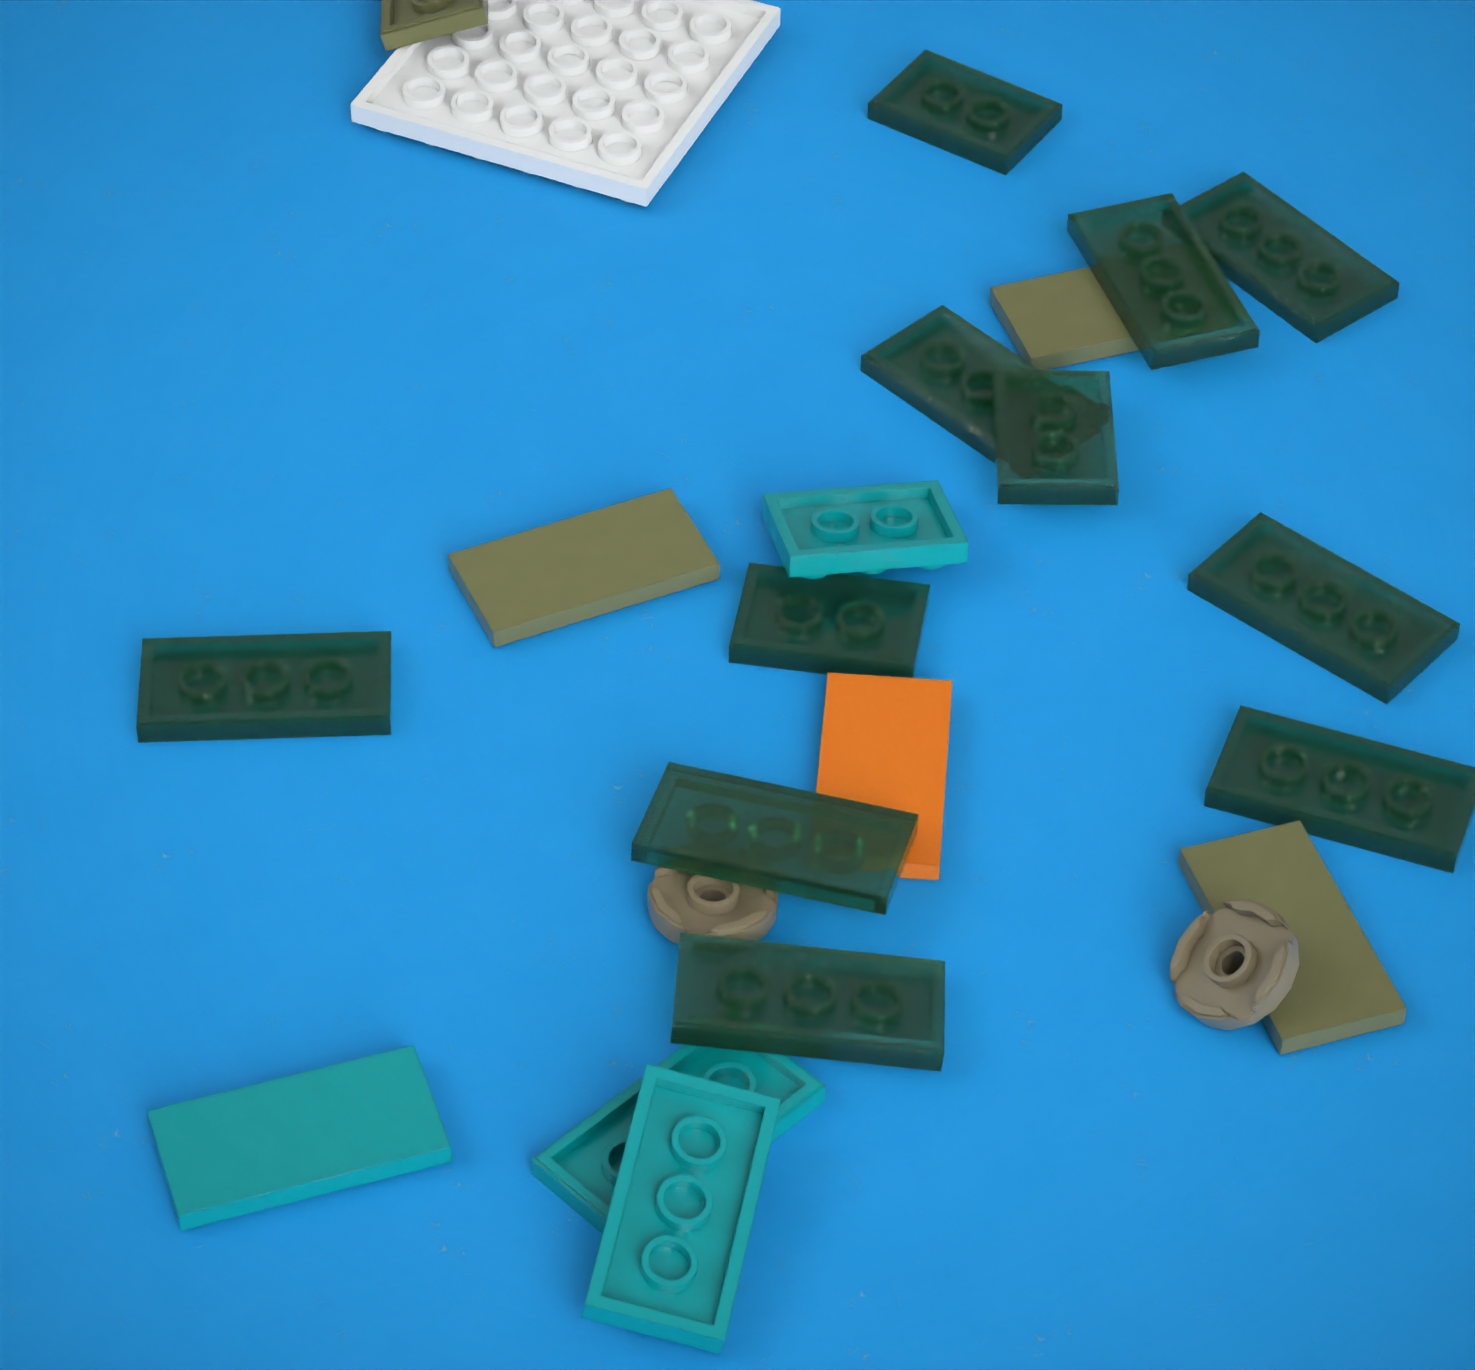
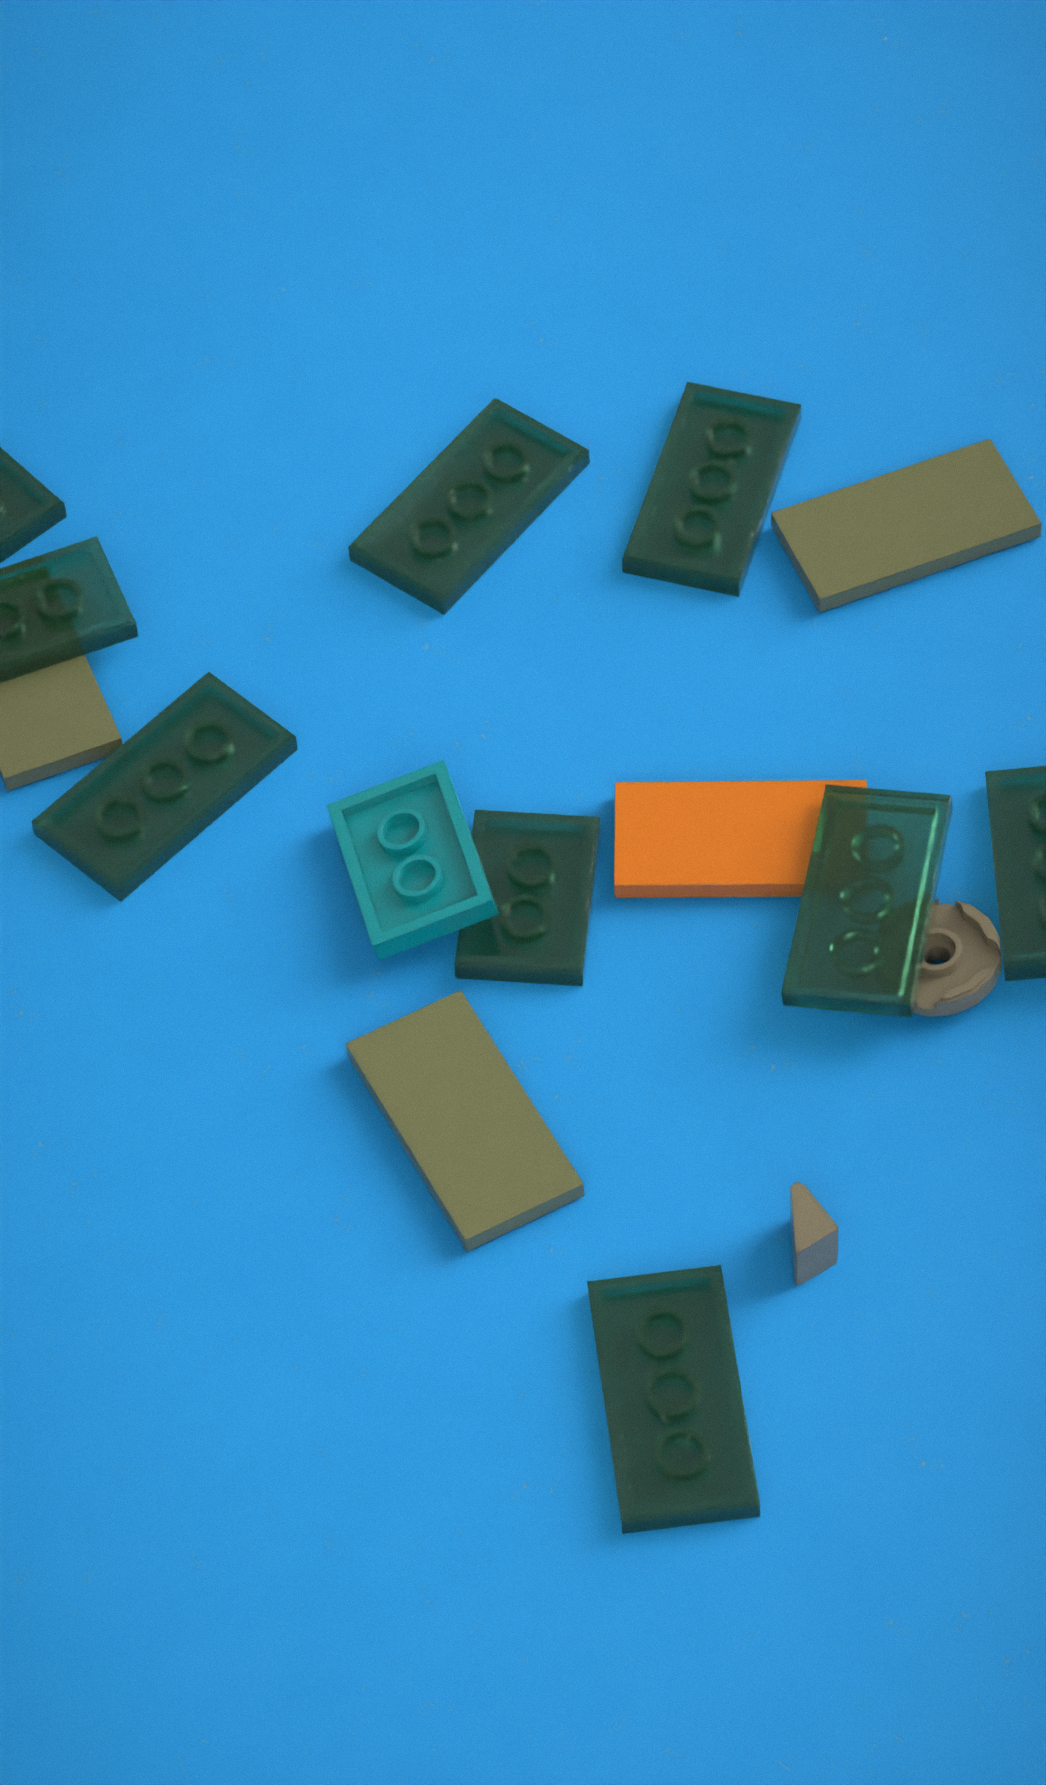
camera: 90 degrees left, 10 degrees up
(406, 772) = (812, 1235): none -> dark tan slope
(1054, 437) = (257, 708): clear green tile -> none
(1214, 949) = (1003, 539): dark tan plate -> none

